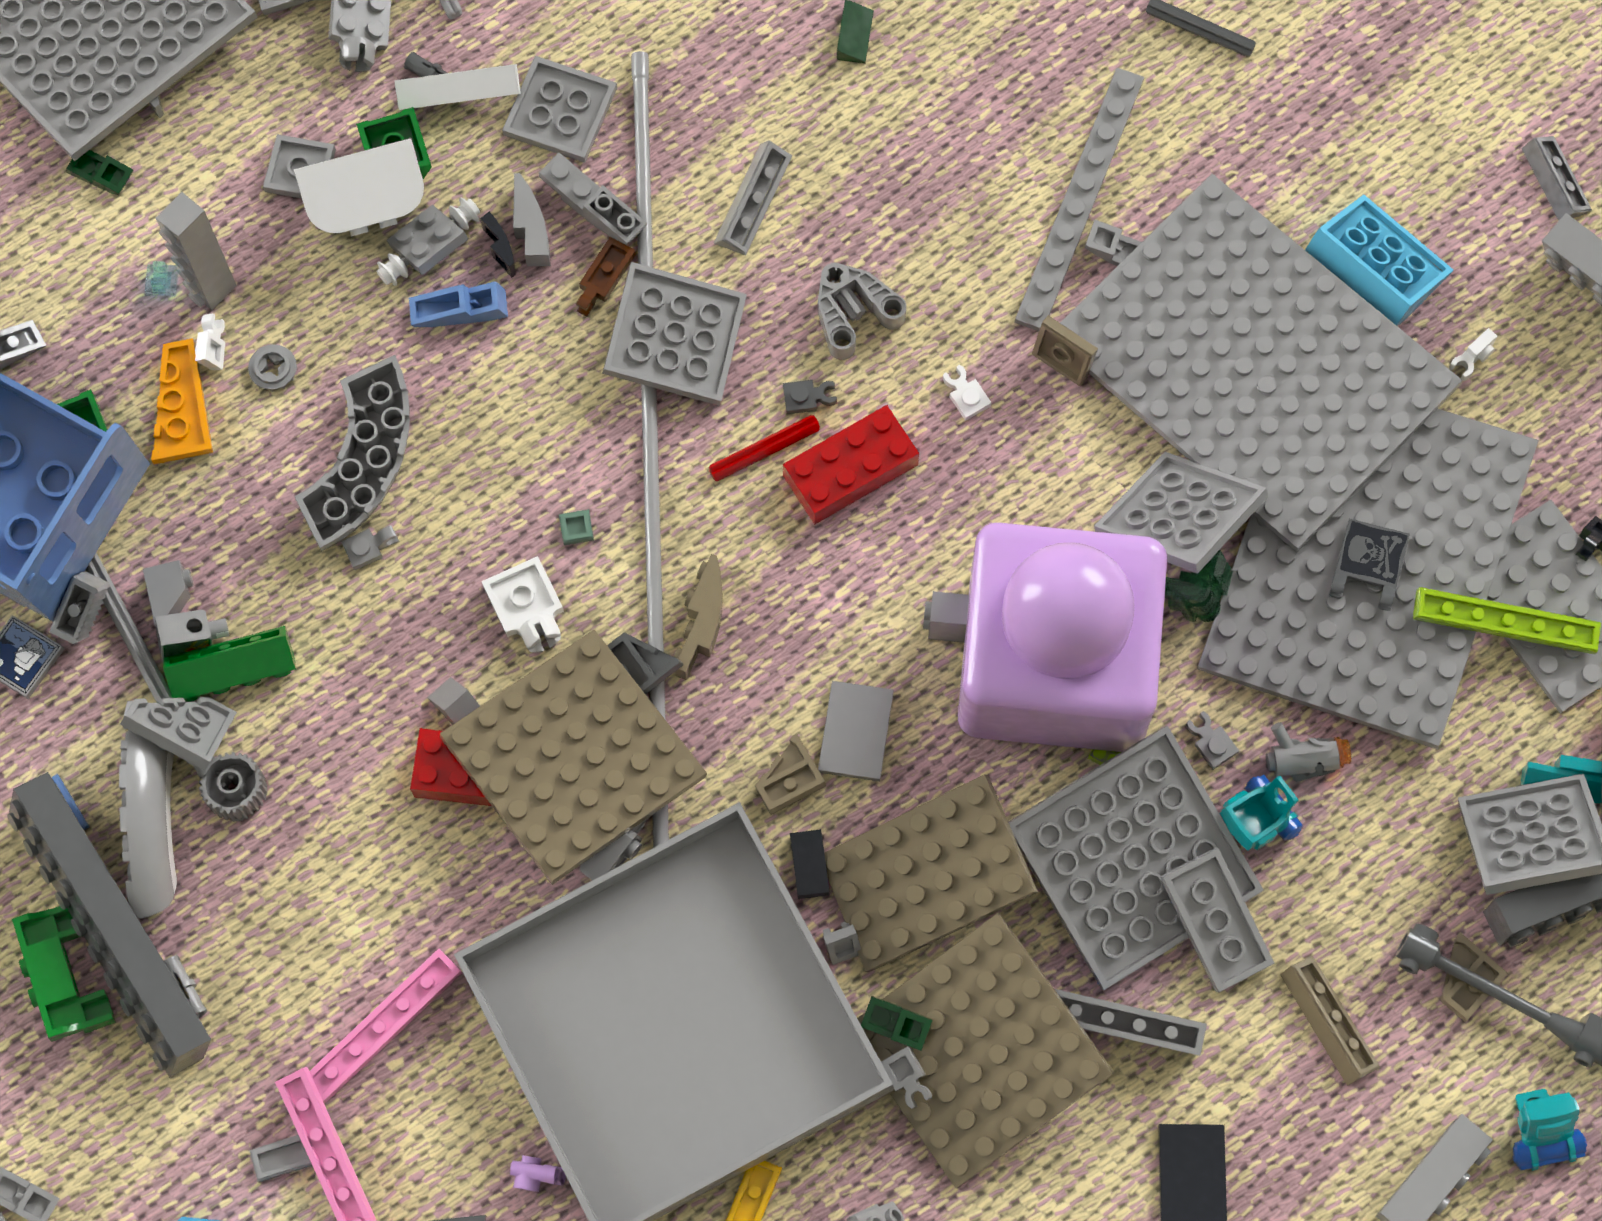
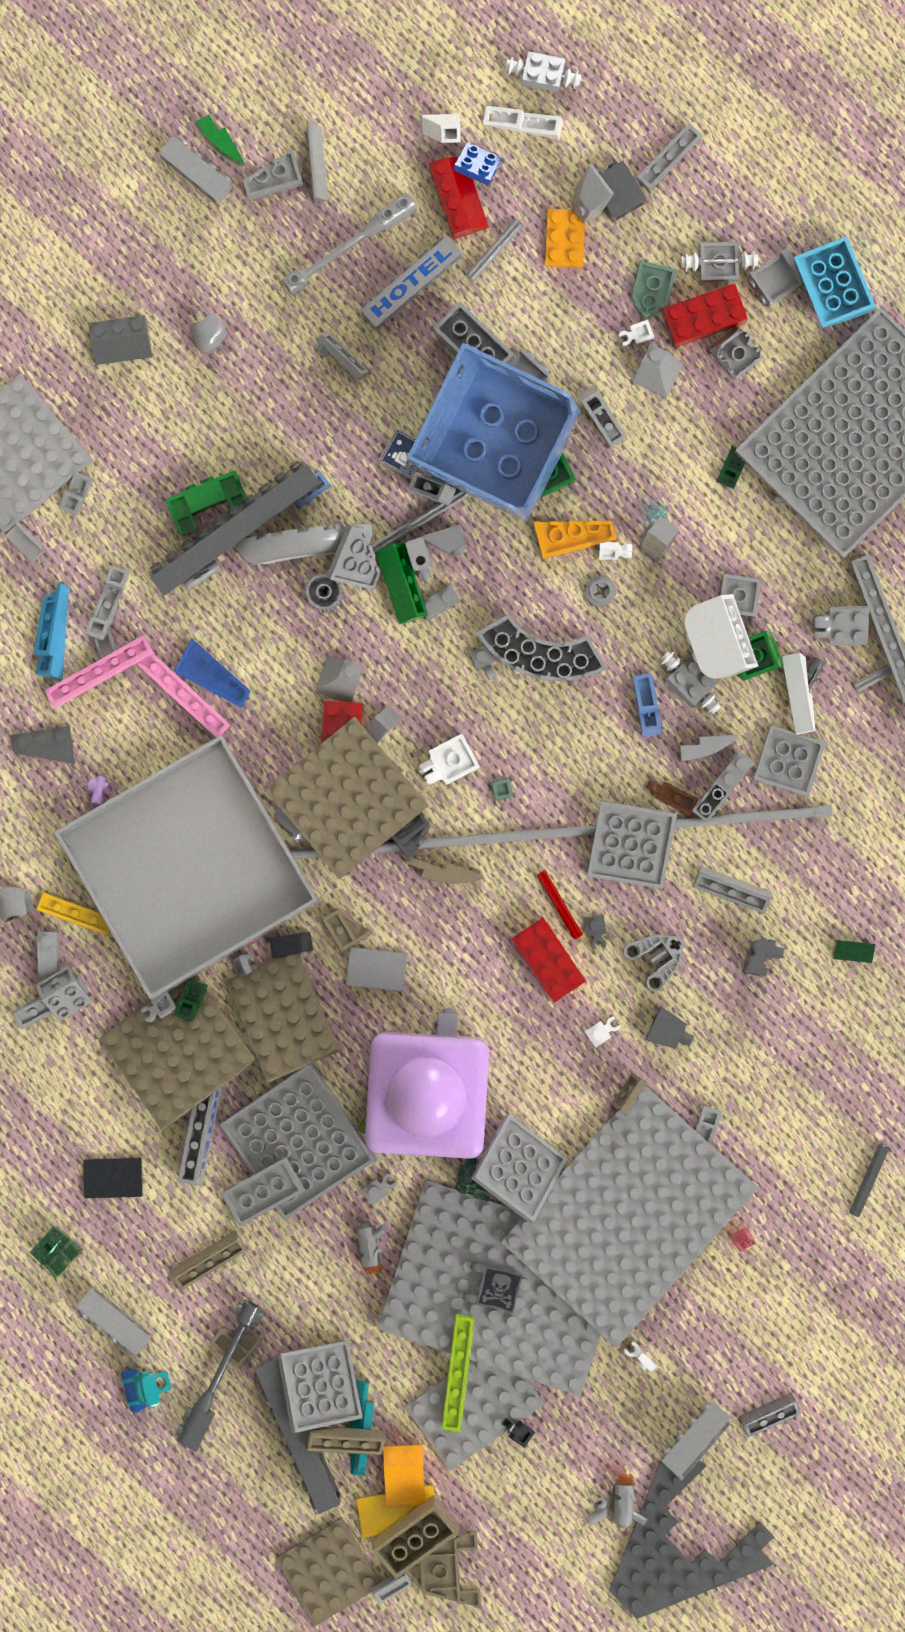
camera: 85 degrees right, 15 degrees up
(214, 1146) = (108, 603): none -> light grey slope
(266, 607) = (440, 602): none -> light grey plate
(347, 987) = (208, 673): none -> blue wing
(376, 770) = (339, 679): none -> light grey slope
(501, 248) = (685, 730): black slope -> none
(856, 157) = (761, 951): none -> dark grey hips
(966, 295) = (668, 1030): none -> dark grey torso
(1079, 199) = (741, 1102): light grey plate -> none
(1261, 813) = (329, 1218): teal piece -> none
(1290, 204) = (743, 1239): none -> clear pink tile
(1378, 259) = (704, 1296): medium azure slope -> none

